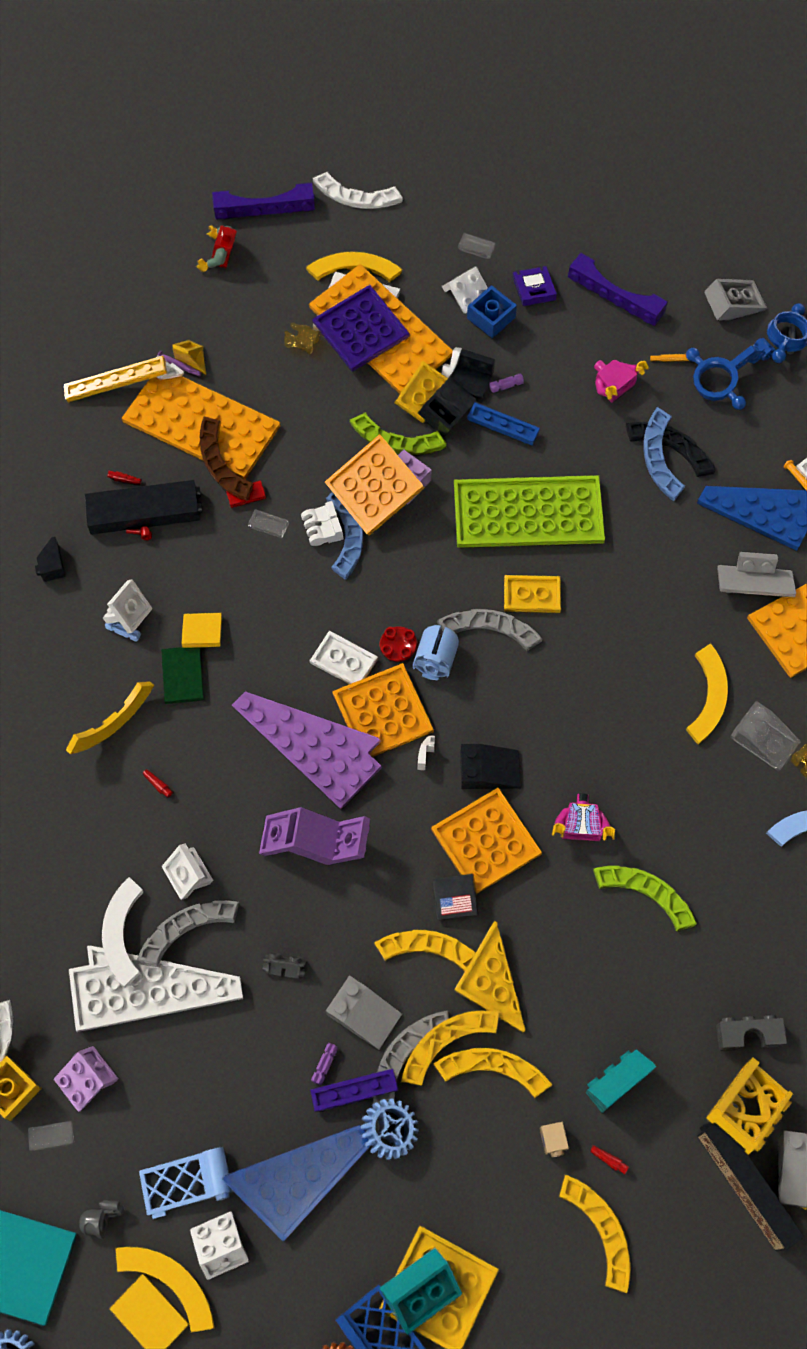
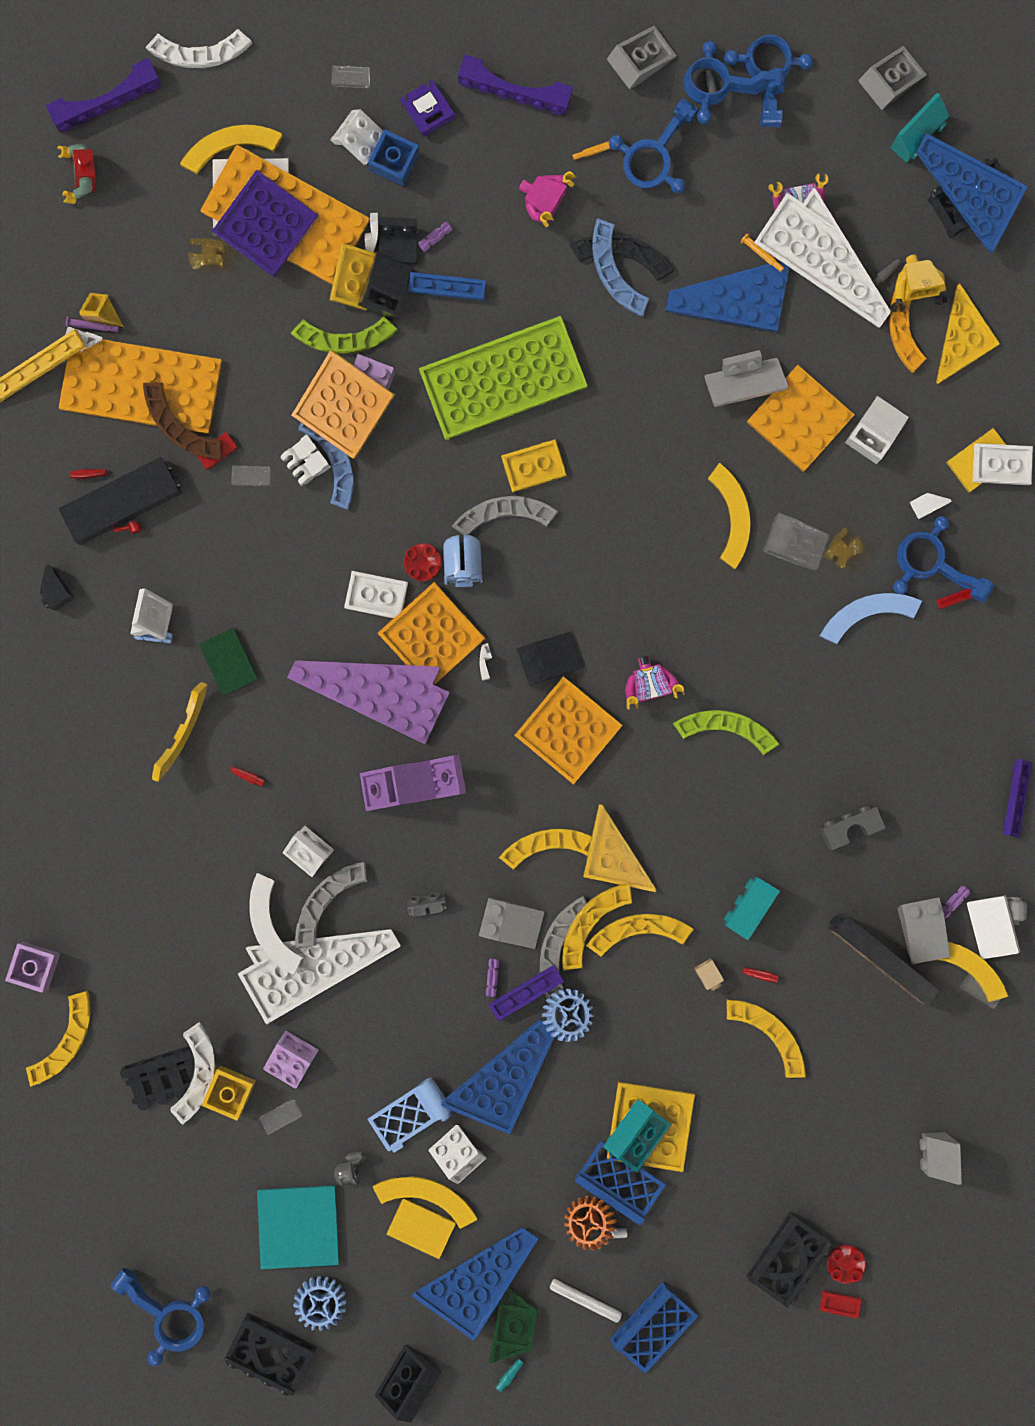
camera: 20 degrees left, 20 degrees up
(201, 630) = (229, 611): yellow tile -> none
(455, 897) = (558, 792): black tile -> none
(724, 1111) = (847, 906): yellow fence -> none

